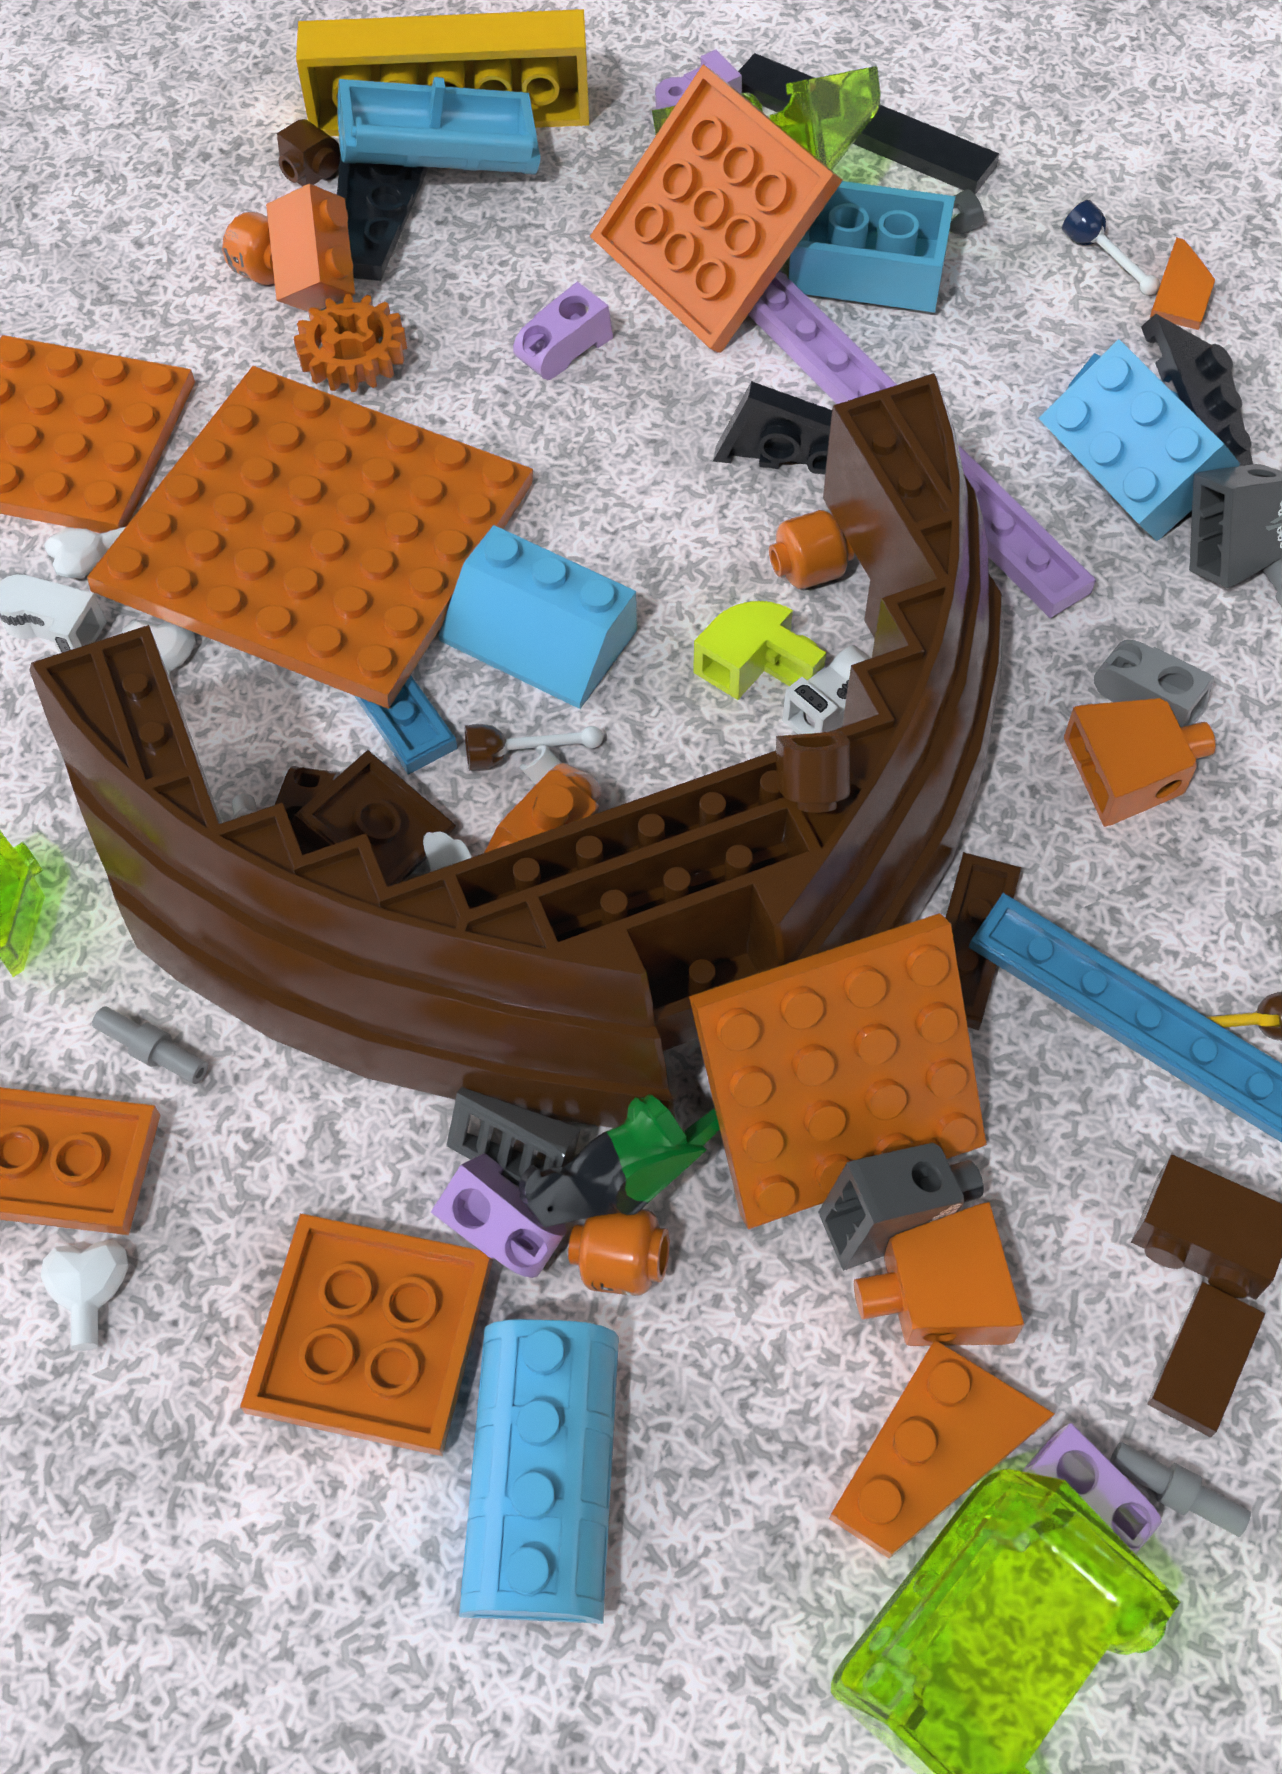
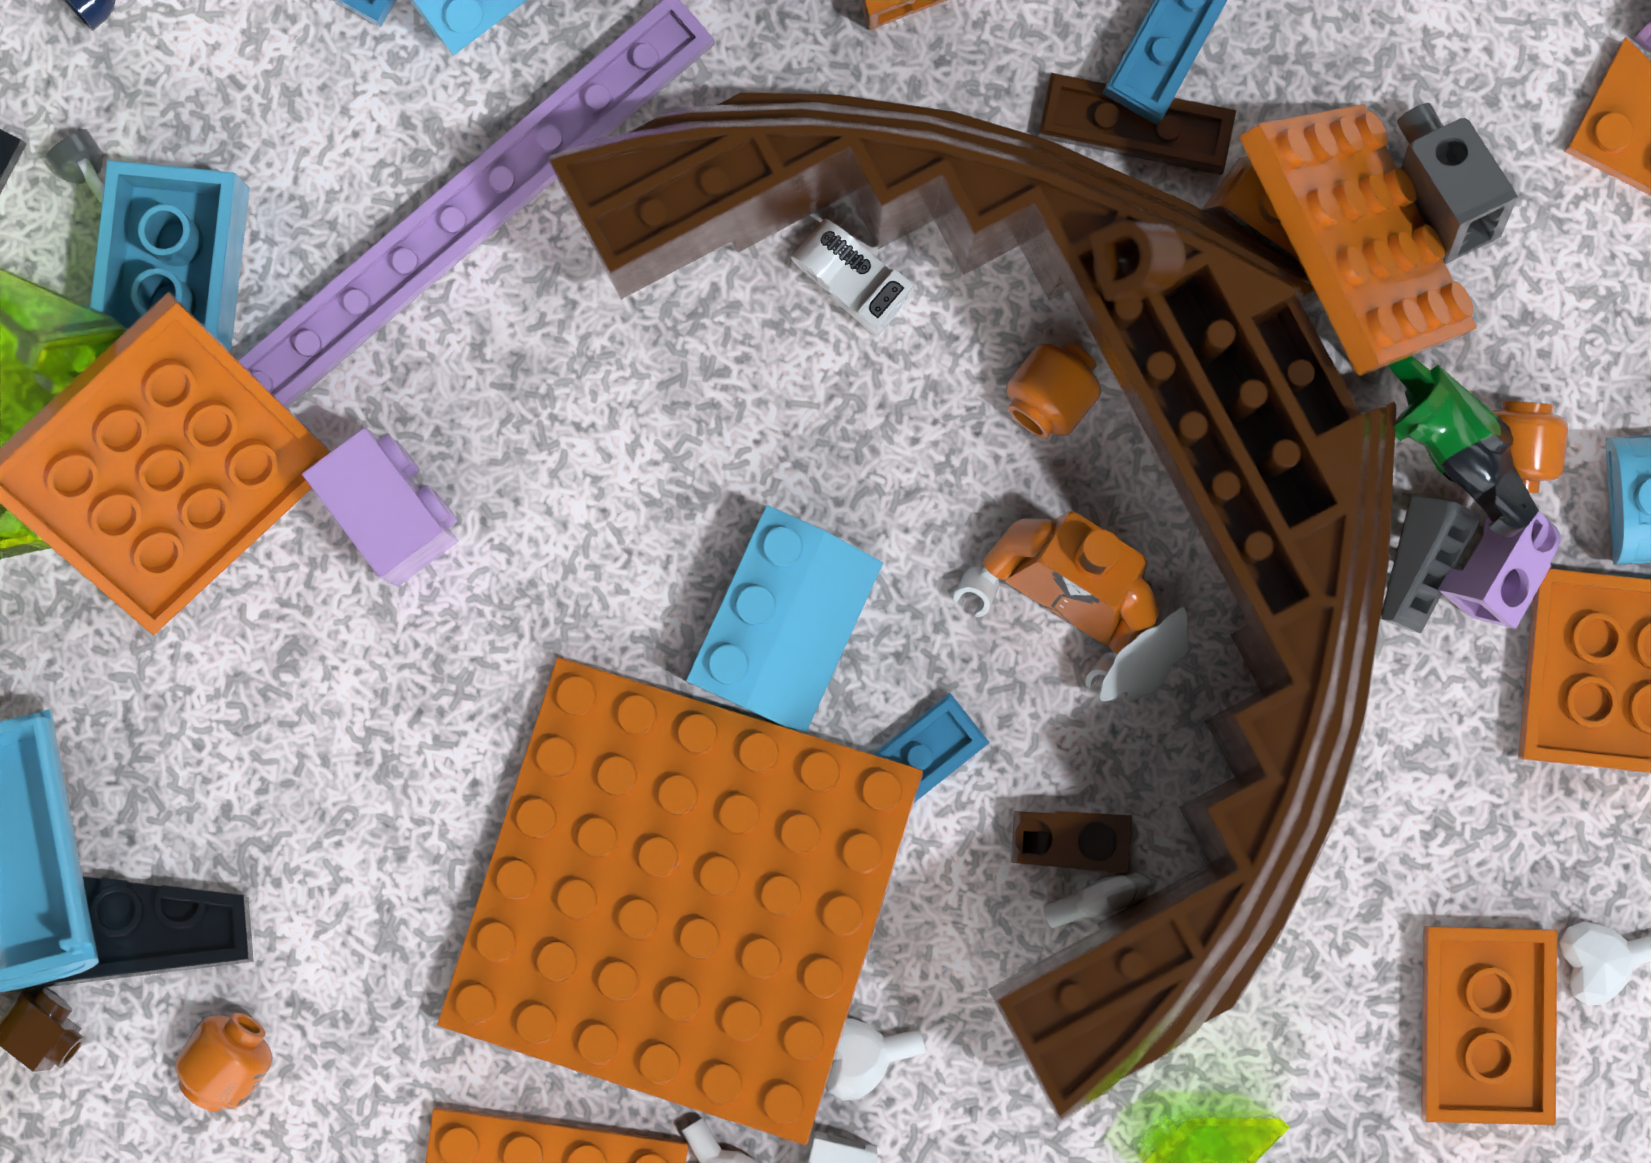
camera: 95 degrees left, 25 degrees up
(150, 1045) = (1351, 952): light grey bar -> none
(310, 247) = (250, 982): orange brick -> none
(350, 342) = (351, 897): orange gear -> none
(378, 803) = (1086, 759): reddish brown tile -> none
(488, 745) = (955, 656): hinge -> none
(563, 331) = (338, 647): lavender leg -> none
(666, 348) = (381, 507): none -> lavender brick
(750, 641) = (796, 381): neon yellow brick -> none
(776, 430) = (490, 320): black wing -> none
(810, 550) = (661, 319): orange head -> none
(946, 1283) = (1529, 132): orange torso -> none

